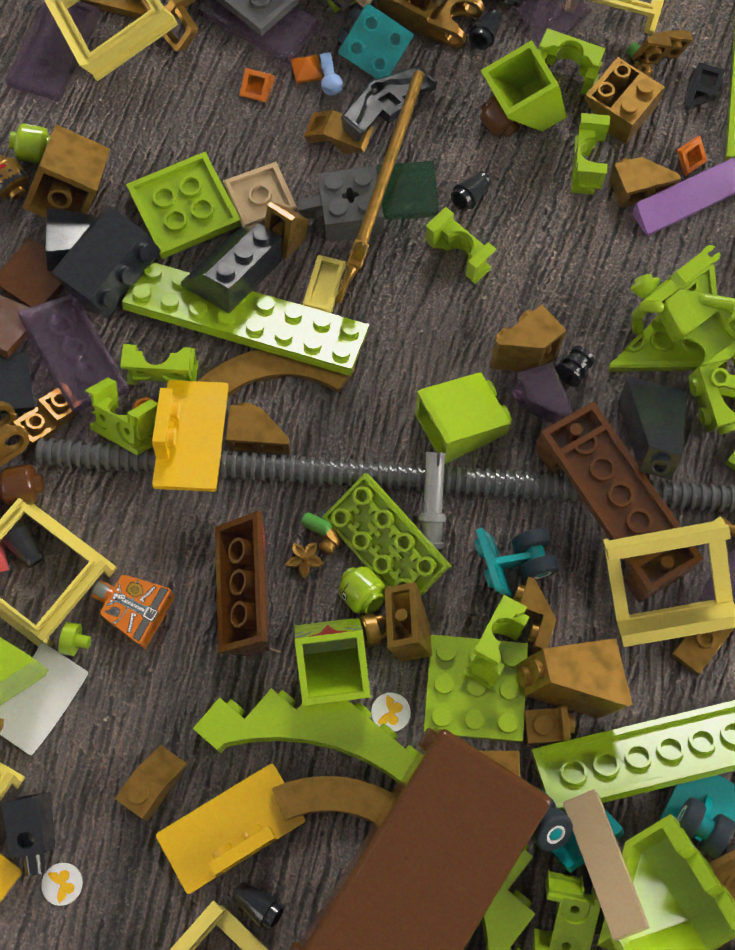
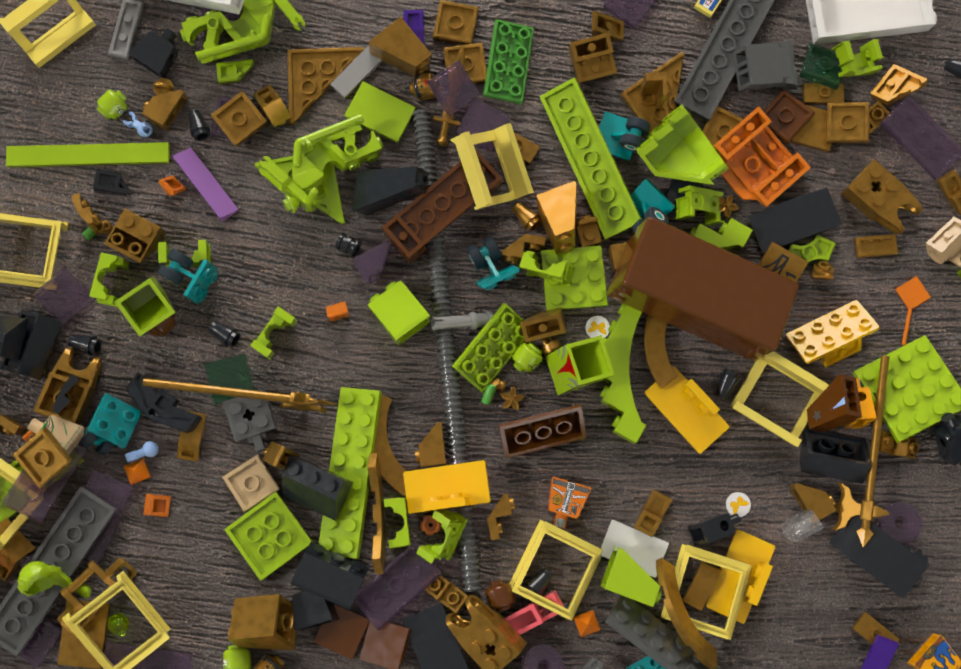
camera: 105 degrees left, 10 degrees up
(72, 639) = (593, 534): lime tile -> none
(82, 739) = (652, 513): none -> pearl gold slope
(116, 20) = (118, 624): none -> clear neon green plate
(142, 511) = (502, 508): none -> pearl gold slope
(151, 782) = (671, 462): pearl gold slope -> none
(217, 346) = (379, 539): none -> pearl gold tile
(324, 283) = (314, 423): light yellow tile -> none
(479, 337) = (337, 311): none -> orange slope
(529, 342) = (339, 273): pearl gold slope -> none
(546, 161) = (200, 281): none -> teal plate
(585, 629) = (527, 217): none -> pearl gold cone
(606, 866) = (669, 185): tan tile -> none
(640, 179) = (198, 218): pearl gold slope -> none

